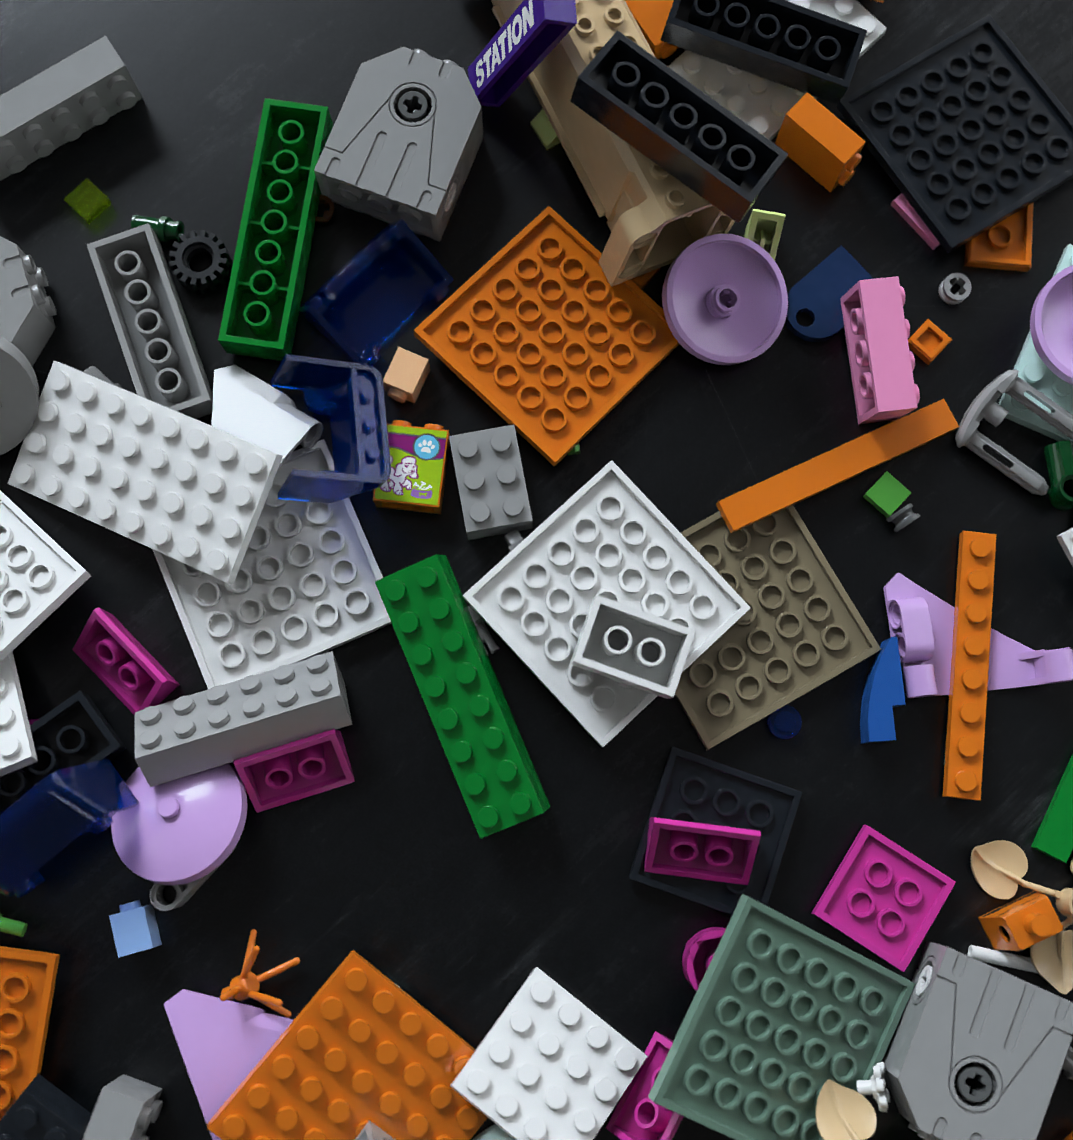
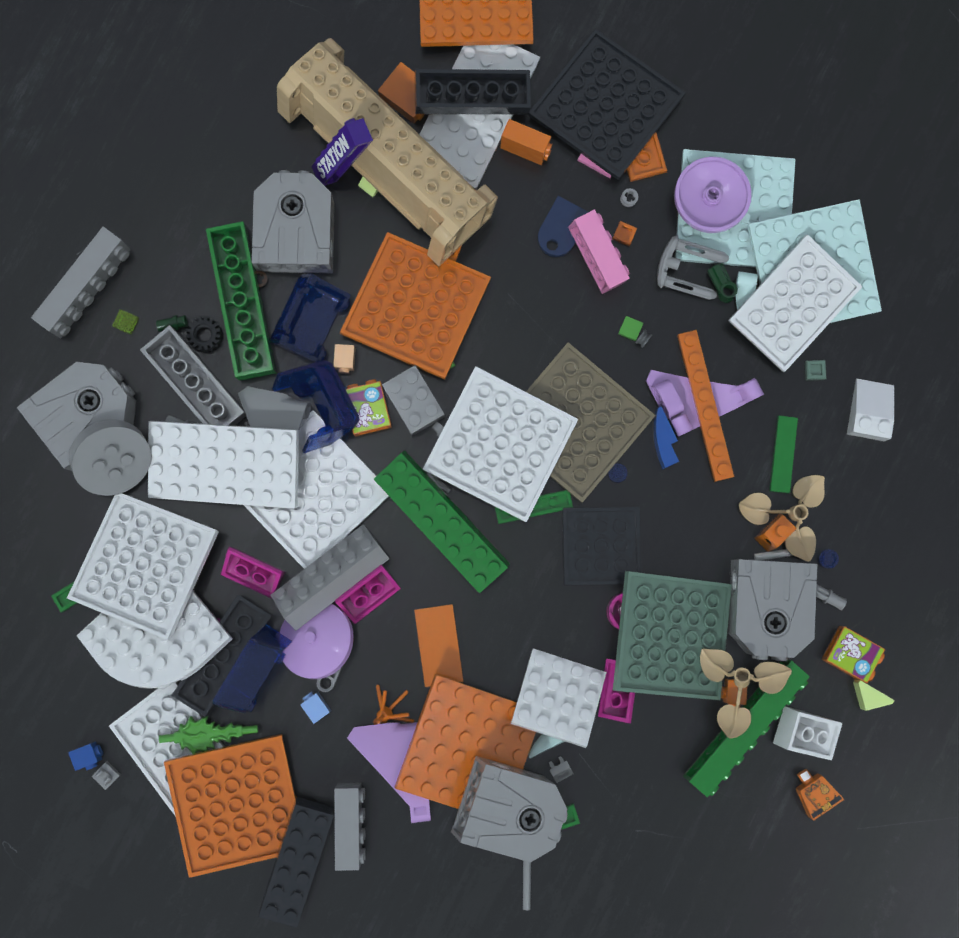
camera: 25 degrees left, 5 degrees up
(381, 899) = (438, 643): none -> orange tile
(633, 647) = (523, 464): white brick -> none
(644, 730) = (545, 504): none -> green tile
(677, 126) = (447, 176): black brick -> none
(701, 850) = (596, 557): dark pink slope -> none
(724, 299) = (504, 251): lavender dish -> none
(765, 230) = (513, 211): yellowish green slope -> none
(836, 465) = (598, 322): orange tile -> none
(876, 1087) = (728, 643): white plant -> none
(883, 897) = (700, 546): dark pink plate -> none

